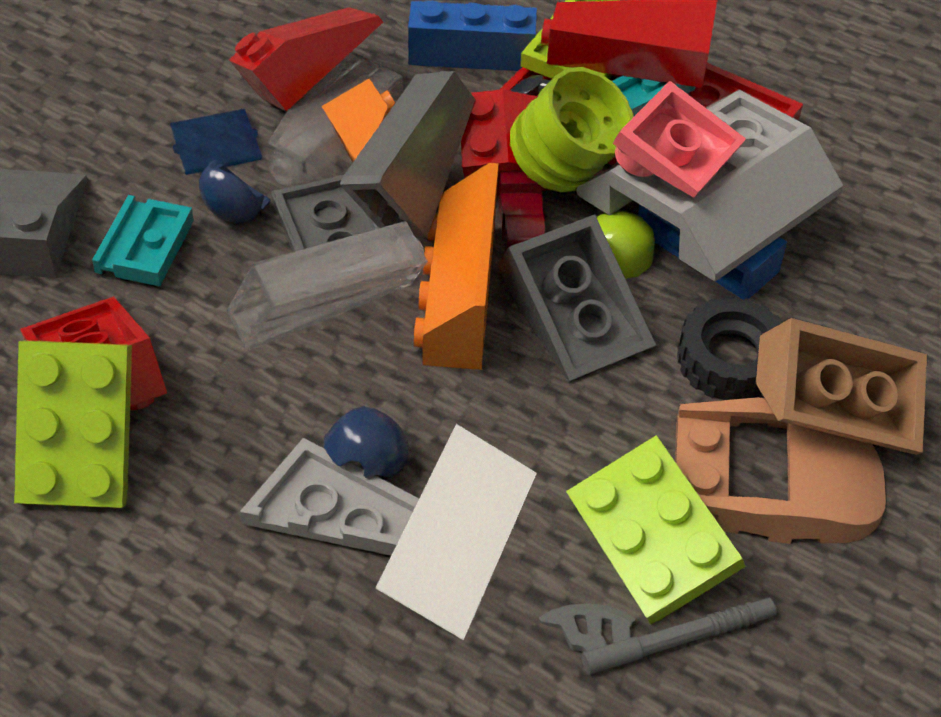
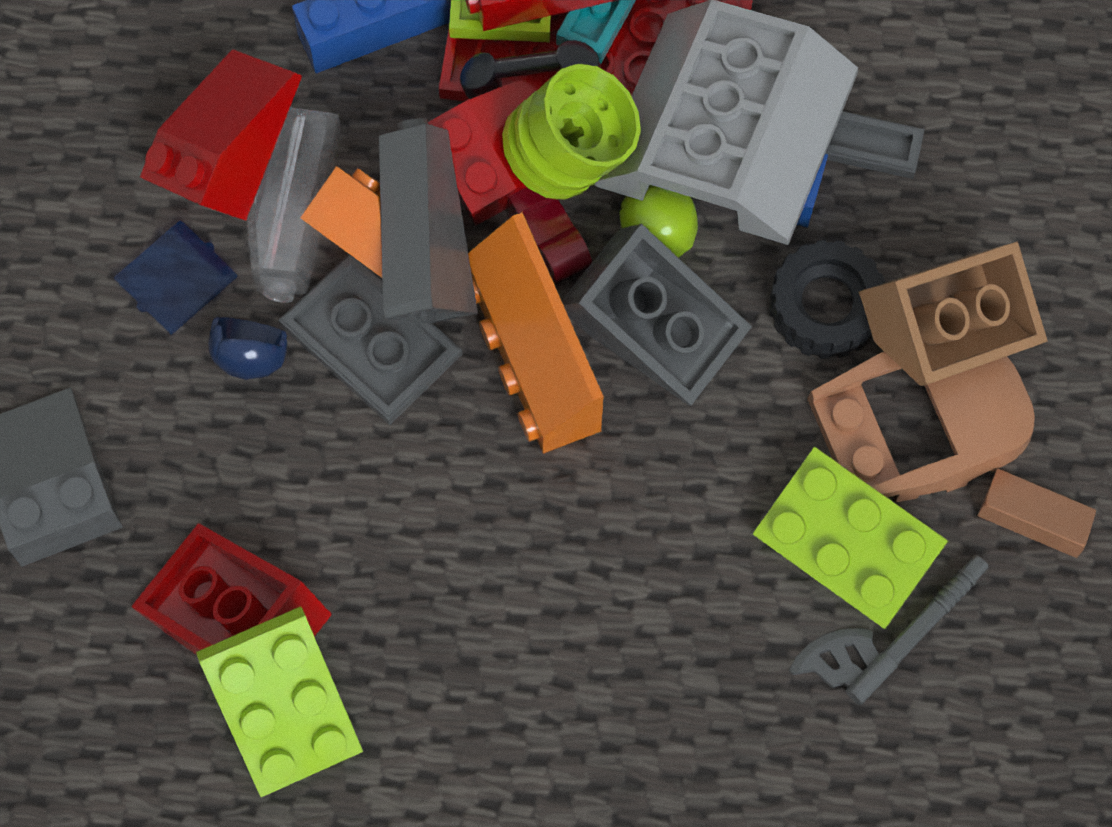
camera: 25 degrees left, 20 degrees up
(143, 240) = (189, 444): teal plate -> none
(323, 282) = (414, 420): clear slope -> none
(330, 502) = (558, 649): light grey wing -> none
(369, 439) = (553, 577): dark blue hair -> none
(457, 532) = (679, 622): white sticker -> none
(676, 141) = (697, 119): coral slope -> none
(833, 263) = (876, 144): none -> dark grey tile
(846, 591) = (1037, 513): none -> nougat slope

